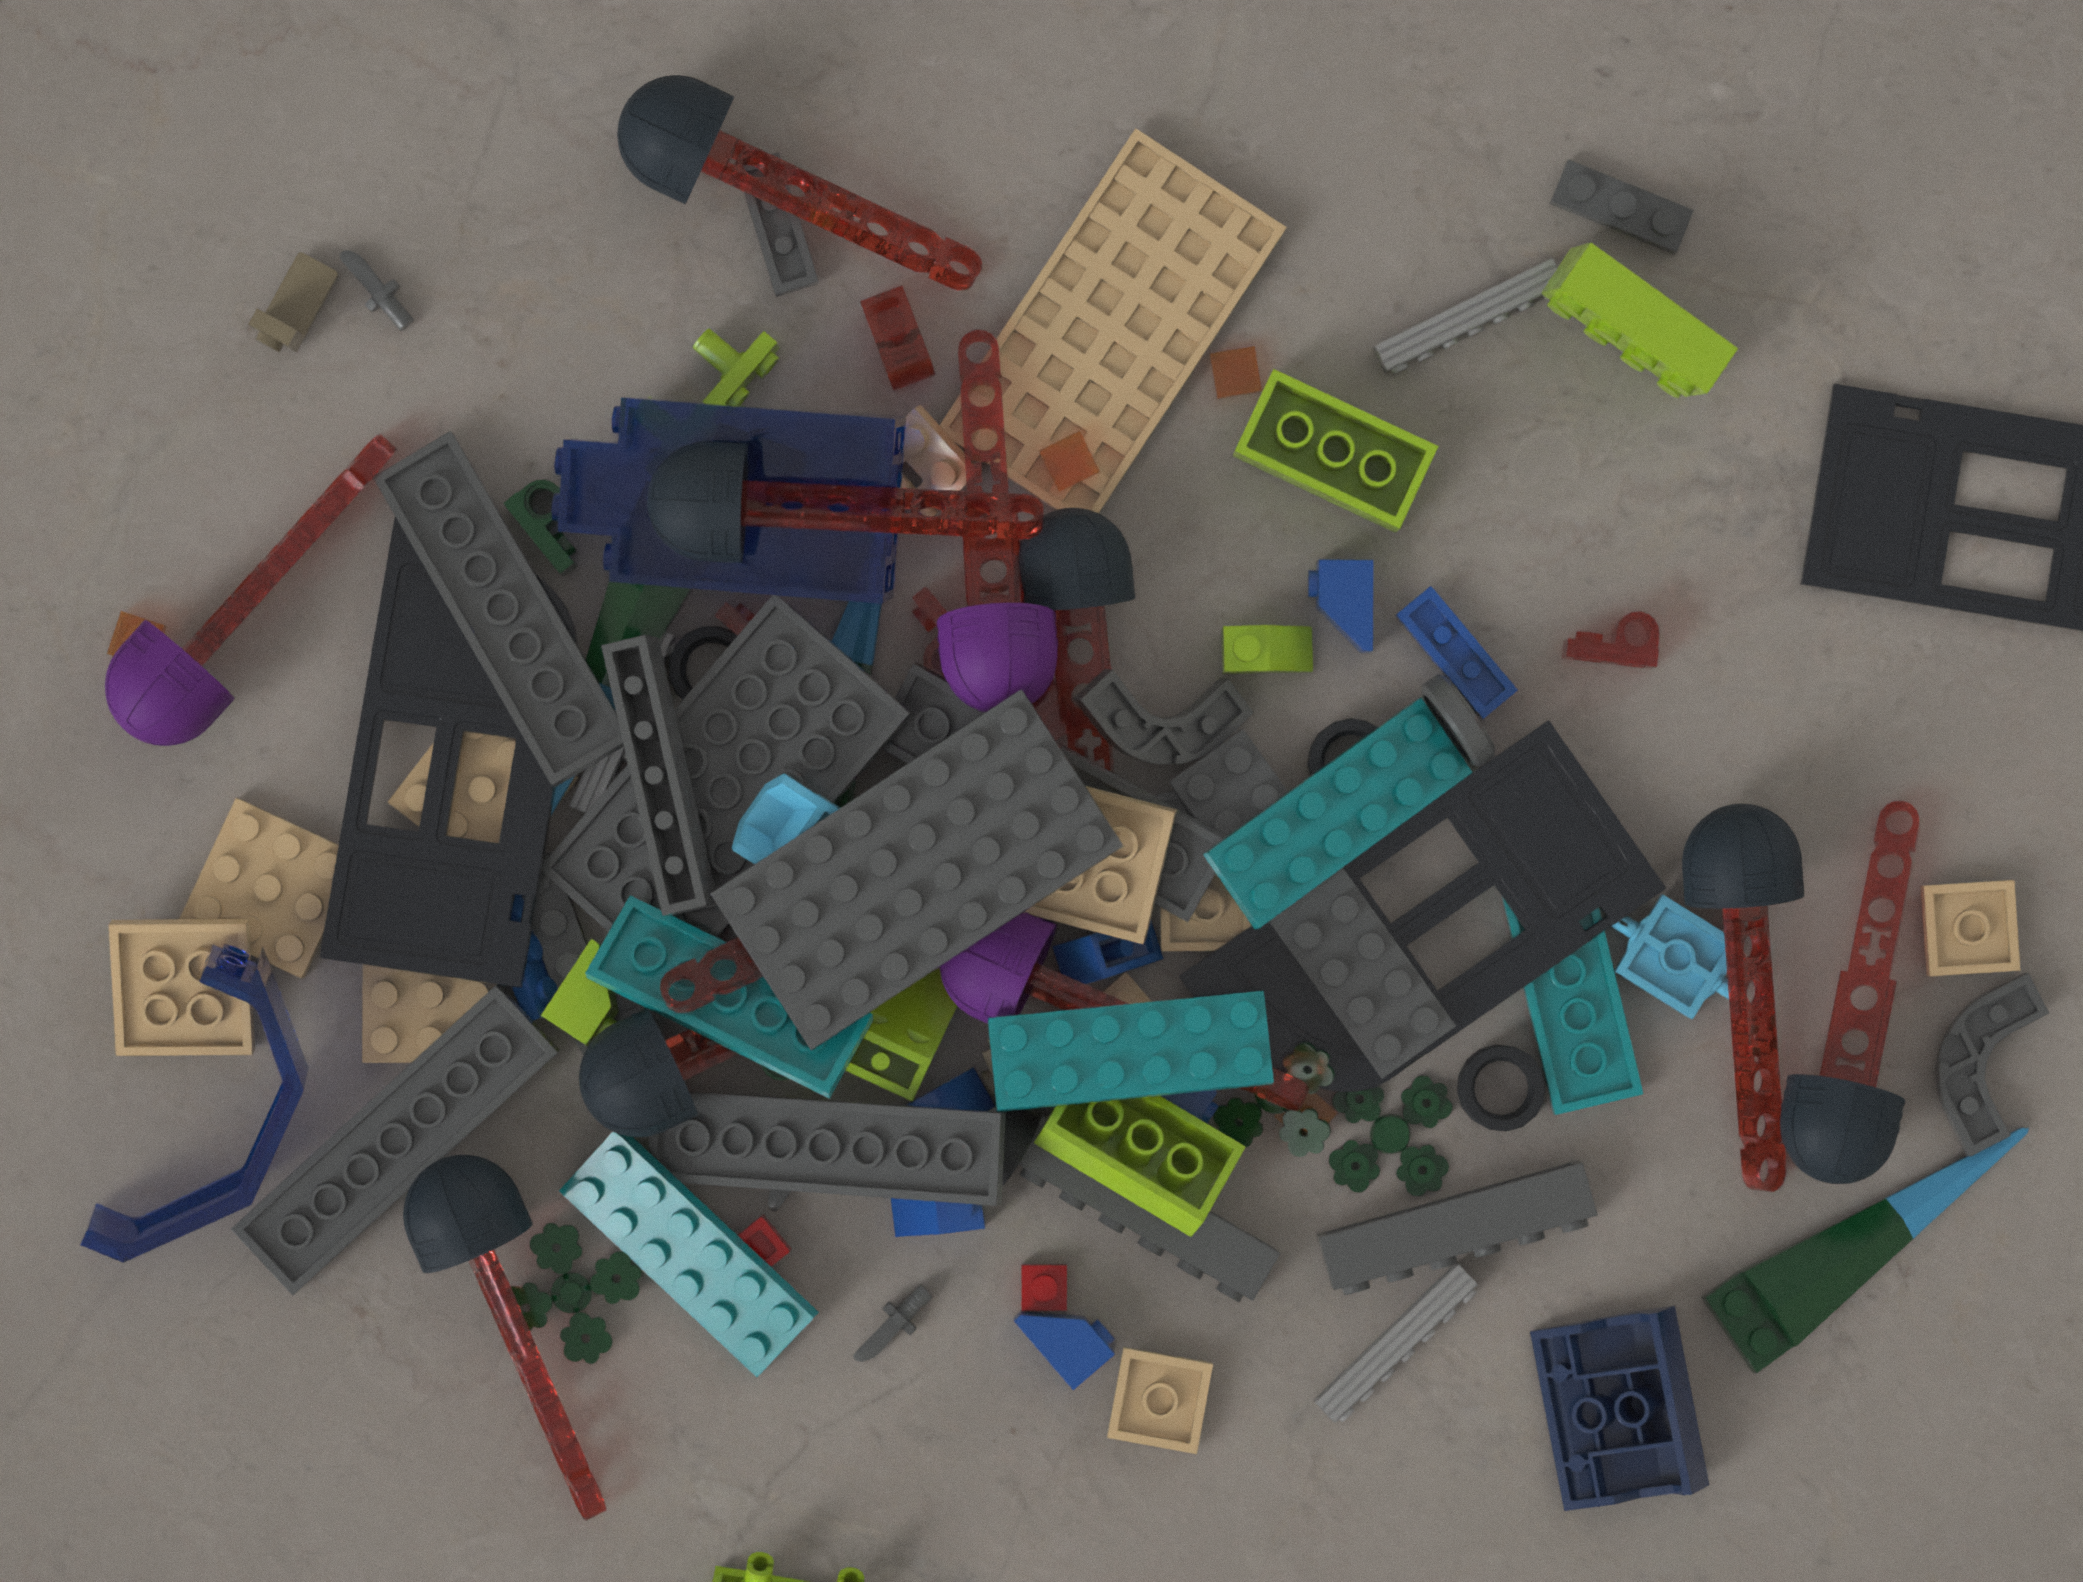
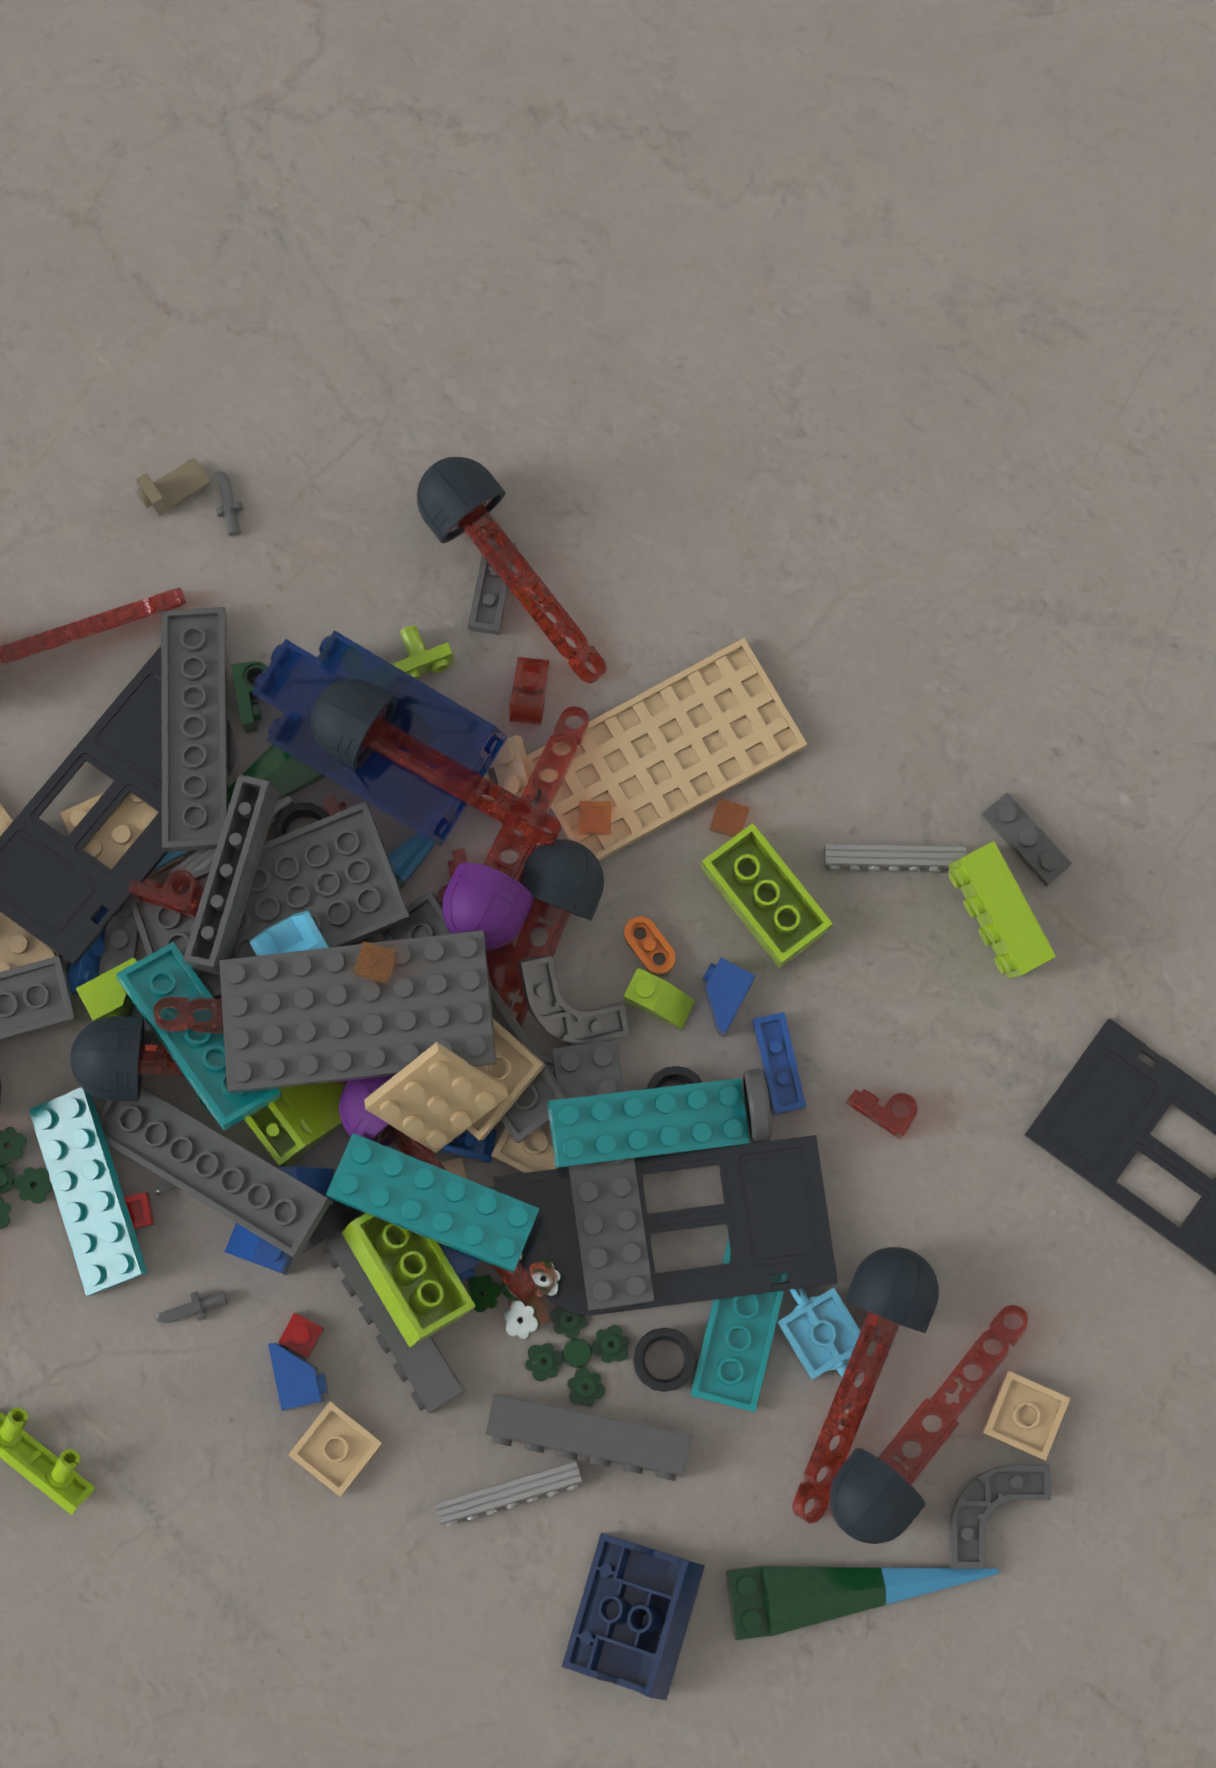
camera: 30 degrees right, 10 degrees down
(595, 842) = (168, 895): none -> clear red plate
(910, 799) = (375, 962): none -> clear orange tile
(1070, 924) = (435, 1097): none -> tan plate
(1221, 585) = (650, 946): none -> orange plate

